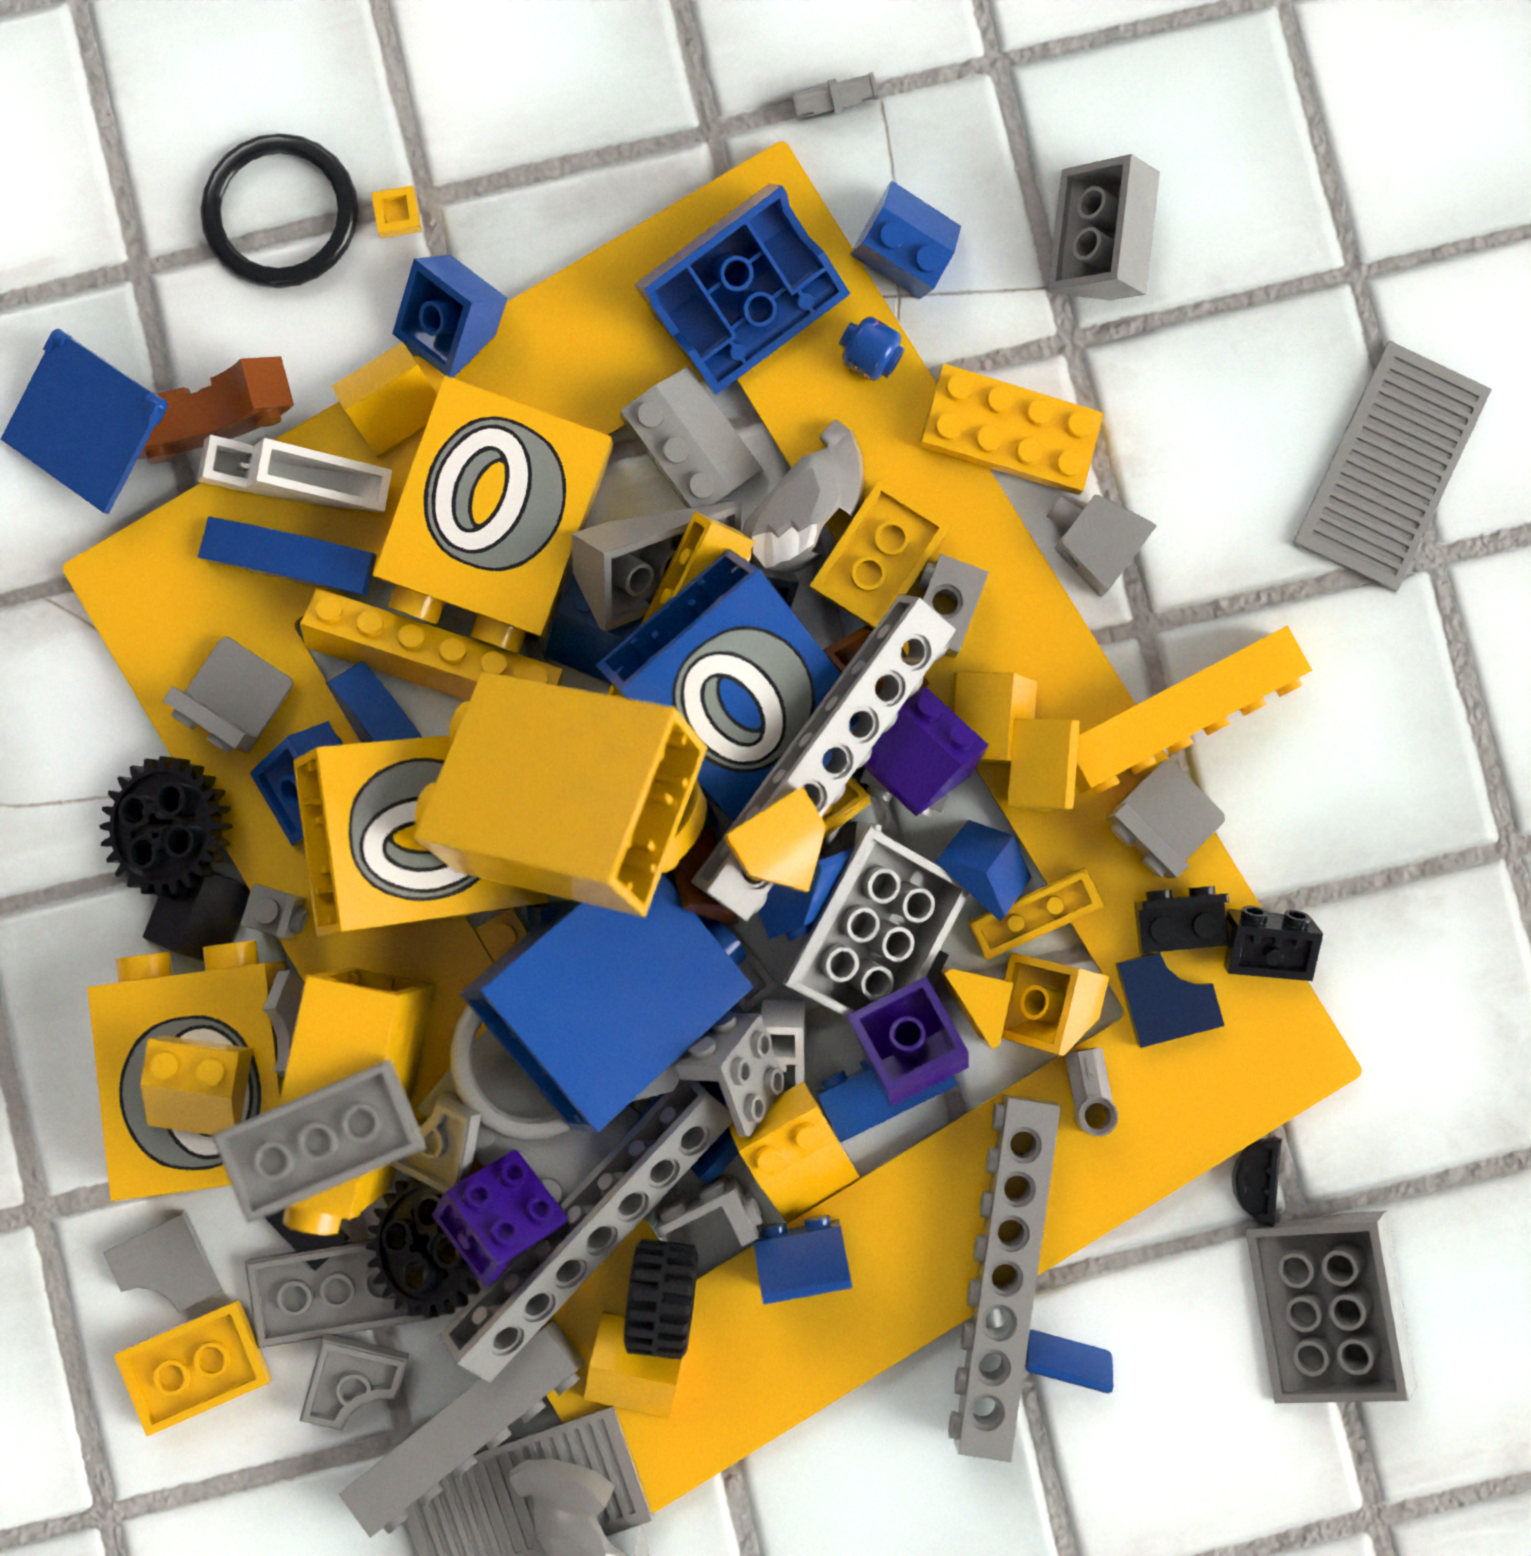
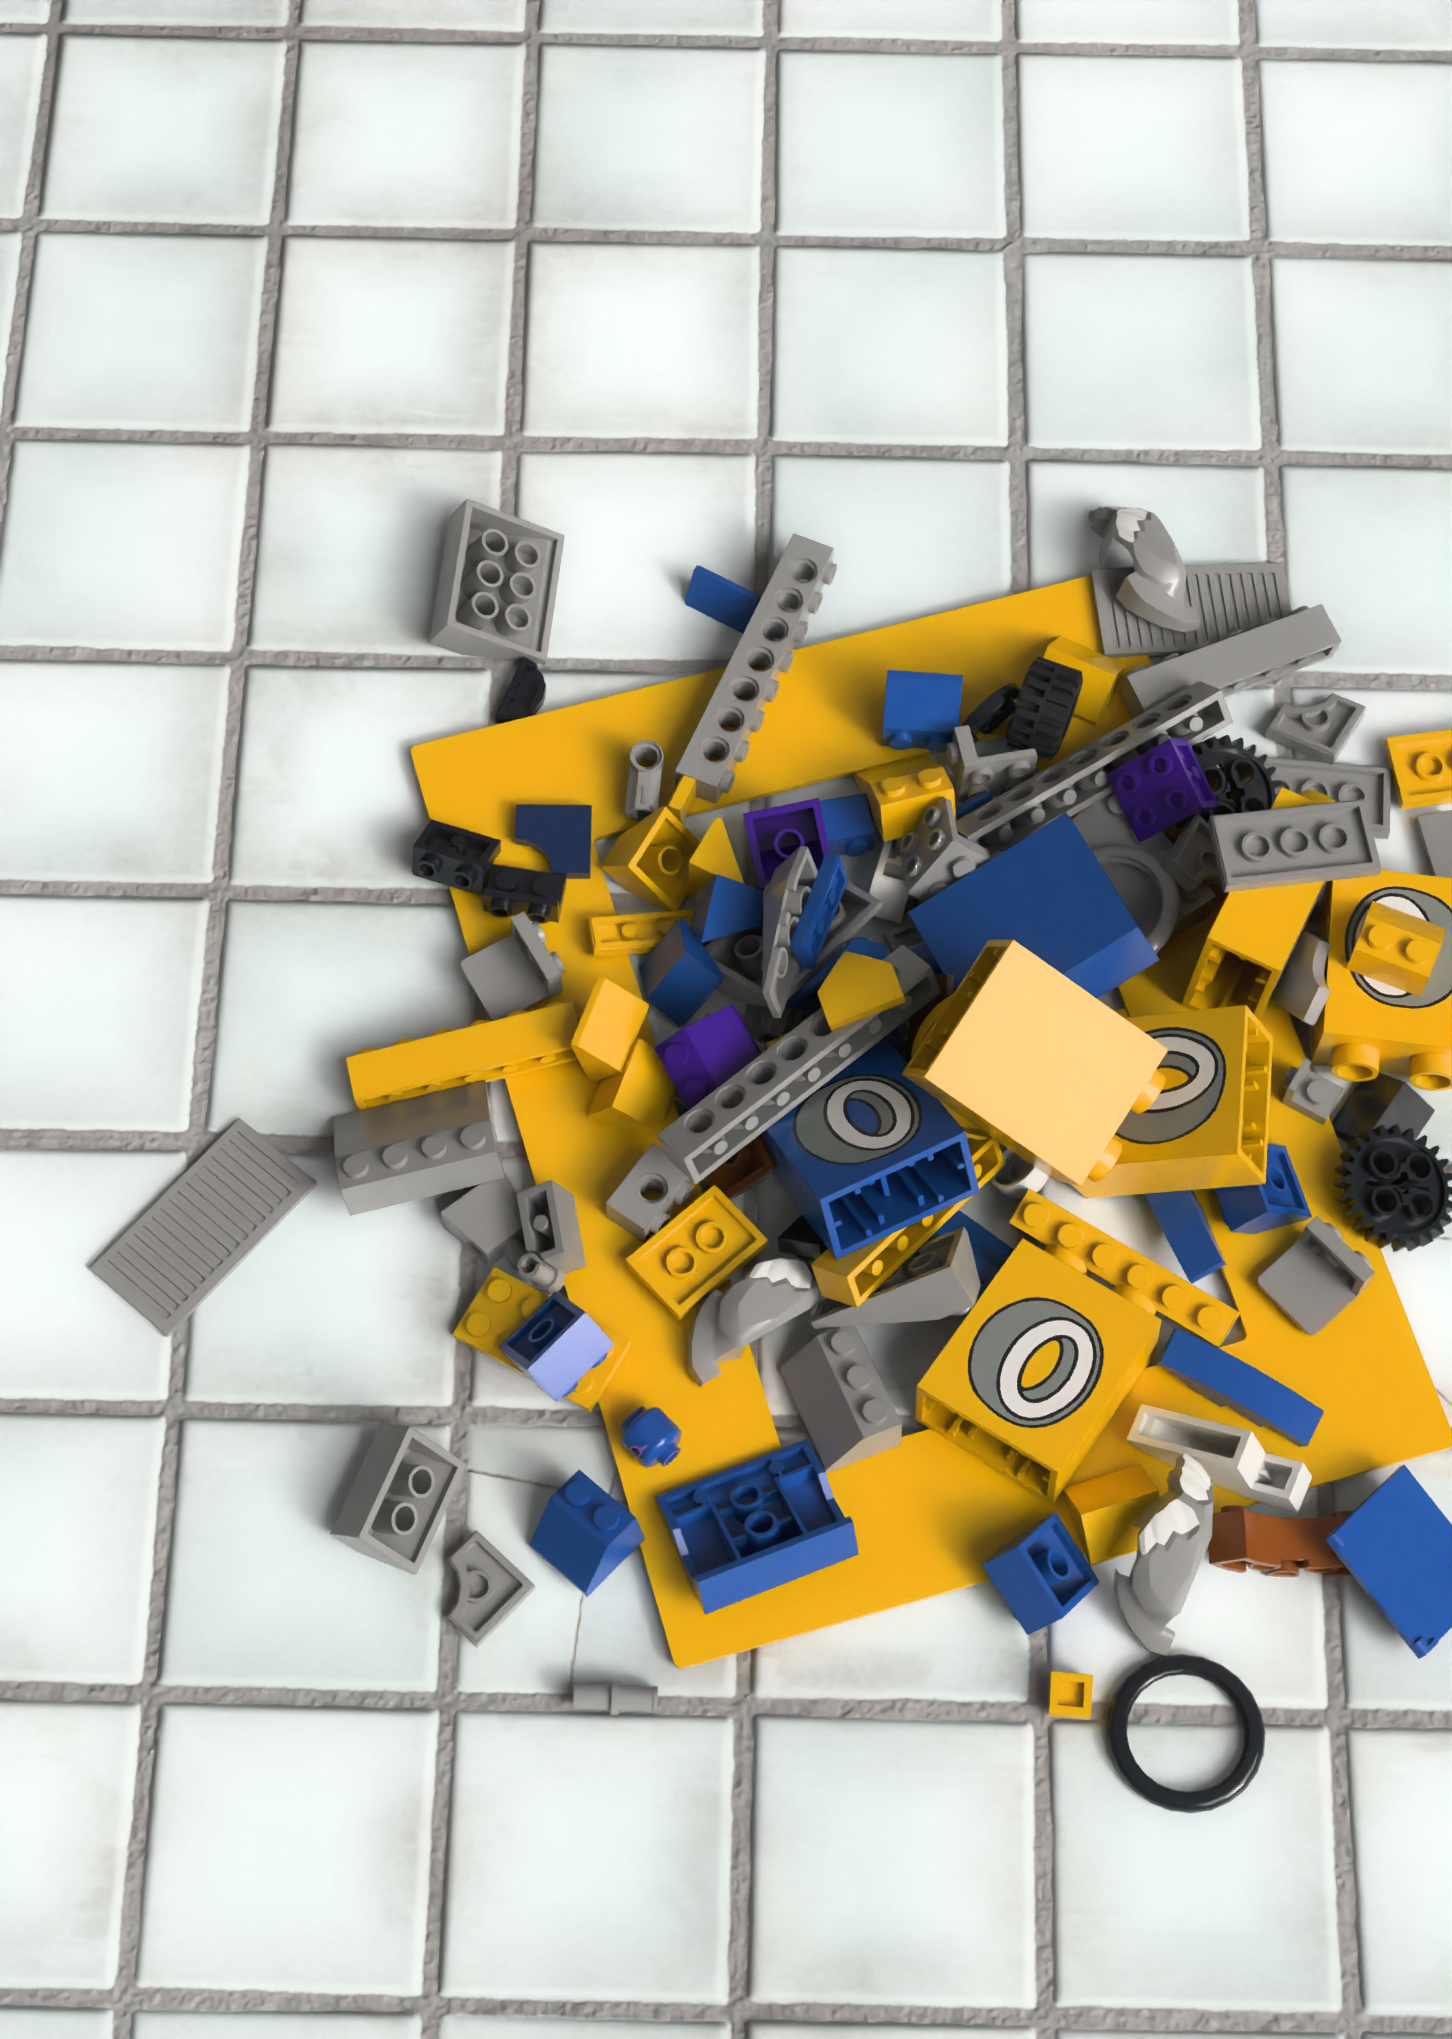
camera: 165 degrees left, 20 degrees down
(317, 358) = (1169, 1553): none -> light grey animal
(721, 1280) = (992, 711): none -> black tile
(851, 950) = (819, 911): none -> blue tile
(882, 934) = (782, 908): none -> light grey wedge
(953, 936) = (726, 908): none -> blue slope
(989, 172) = (487, 1588): none -> light grey tile
(995, 402) = (557, 1346): none -> slope
(1036, 525) = (550, 1236): none -> light grey hinge
(1042, 1078) = (682, 798): none -> yellow tile
(1207, 594) = (416, 1148): none -> light grey slope

